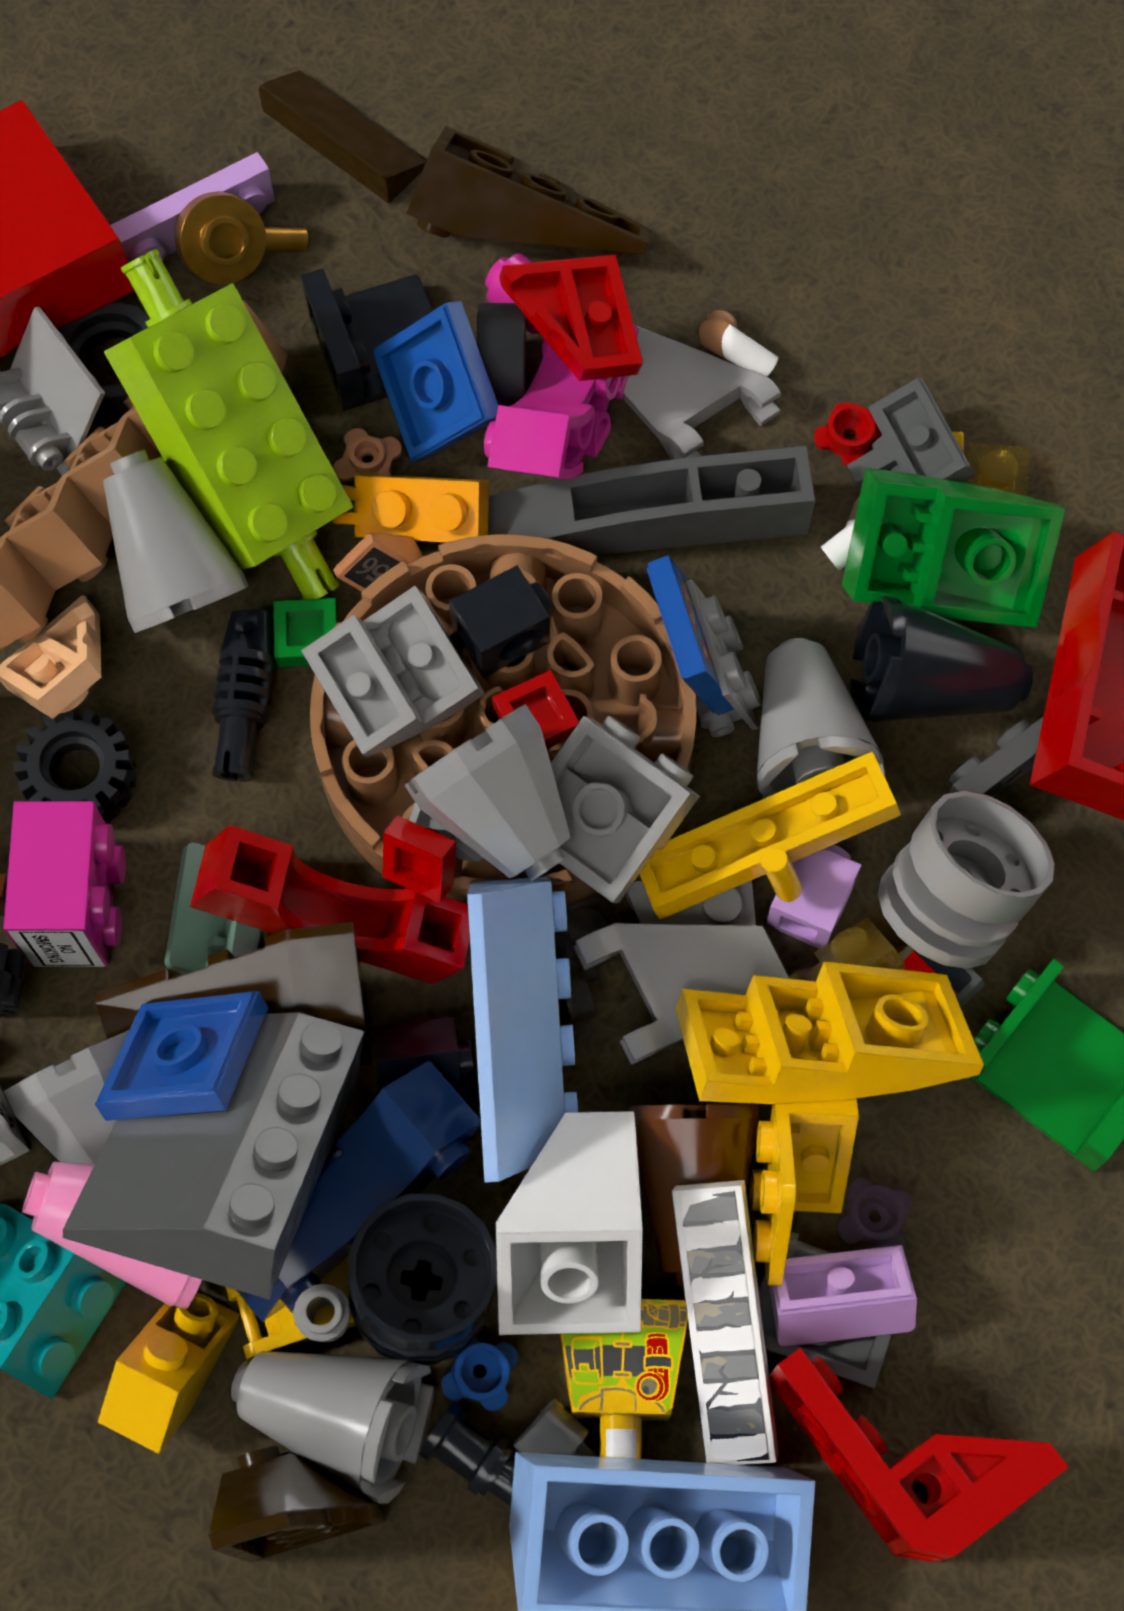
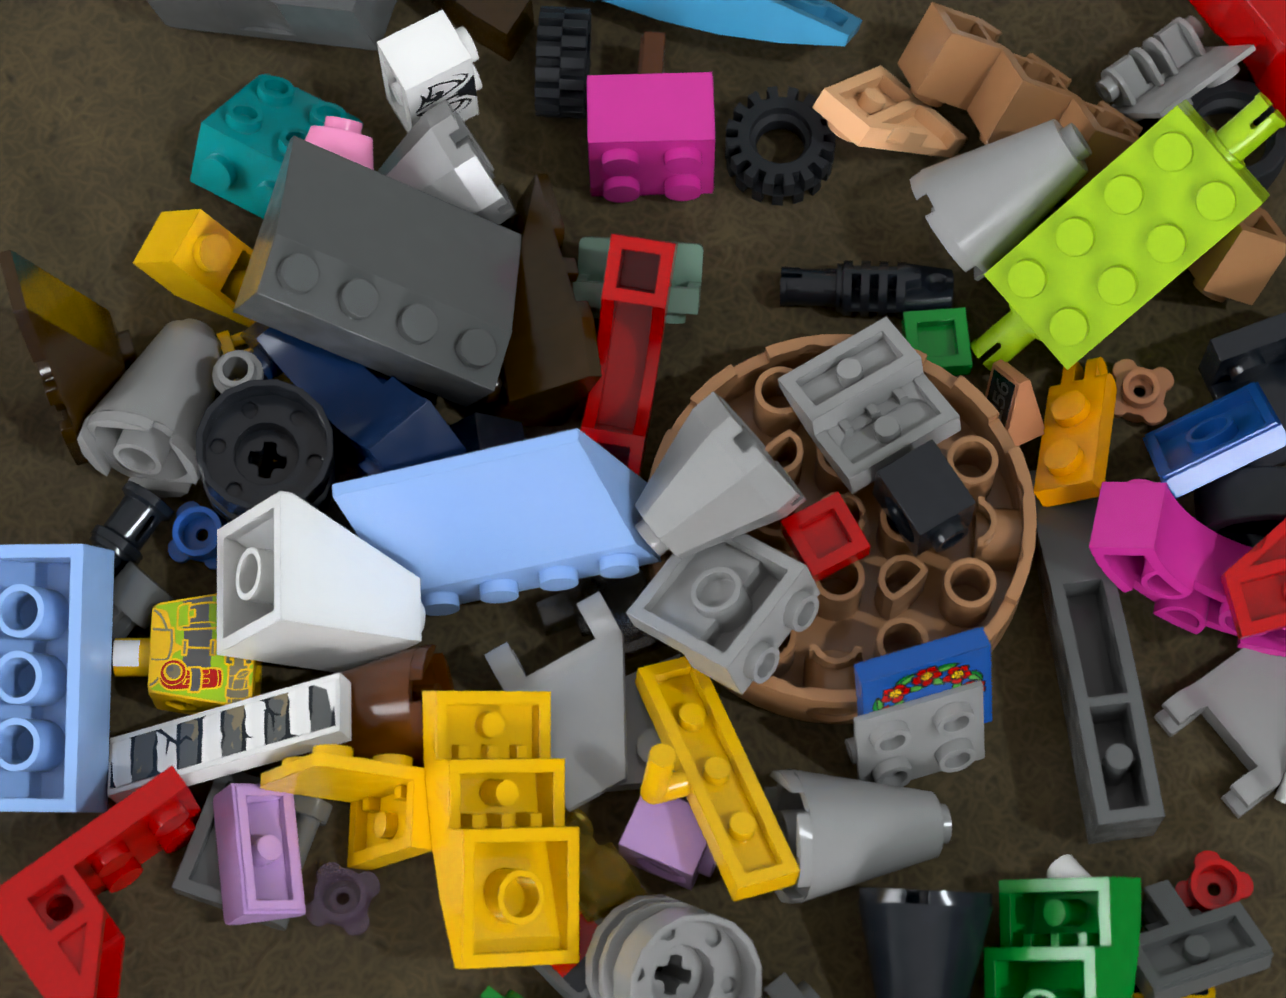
camera: 90 degrees right, 0 degrees up
(182, 1056) = (468, 236): blue tile -> none
(418, 858) = (662, 428): red plate -> none

